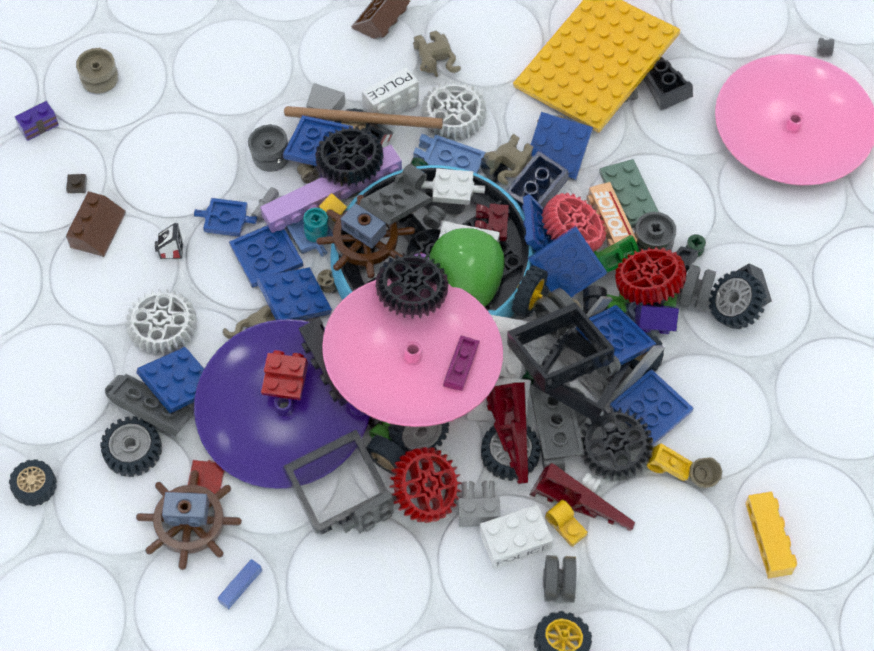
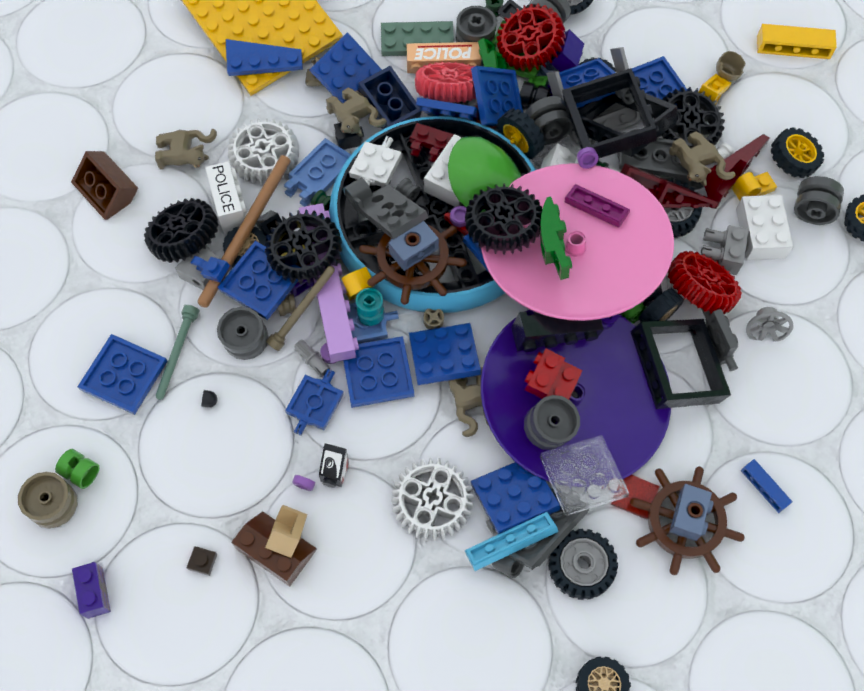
camera: 75 degrees left, 5 degrees up
(105, 226) = (286, 531): none -> tan panel
(127, 80) = (77, 468): none -> bright green wheel
(132, 380) = (511, 541): none -> medium azure tile
(153, 228) = (303, 483): none -> medium lavender tile
(203, 422) = (584, 475): none -> clear plate
(209, 145) = (209, 399): none -> black hinge
(214, 83) = (122, 374): none -> blue plate
(231, 372) = (552, 422): none -> dark grey wheel
(272, 174) = (277, 339): none -> dark tan piece
(278, 109) = (189, 314): none -> sand green piece
(315, 105) = (213, 269): none -> blue plate
(347, 74) = (181, 230): none -> black gear
(404, 321) = (552, 237): none -> green slope
(408, 556) = (769, 322): none -> light grey wheel
(503, 338) = (587, 157): none -> medium lavender tile
(544, 75) = (256, 58): none -> blue wing
(563, 450) = (699, 156): none -> dark tan animal
(630, 538) = (801, 147): none -> black wheel

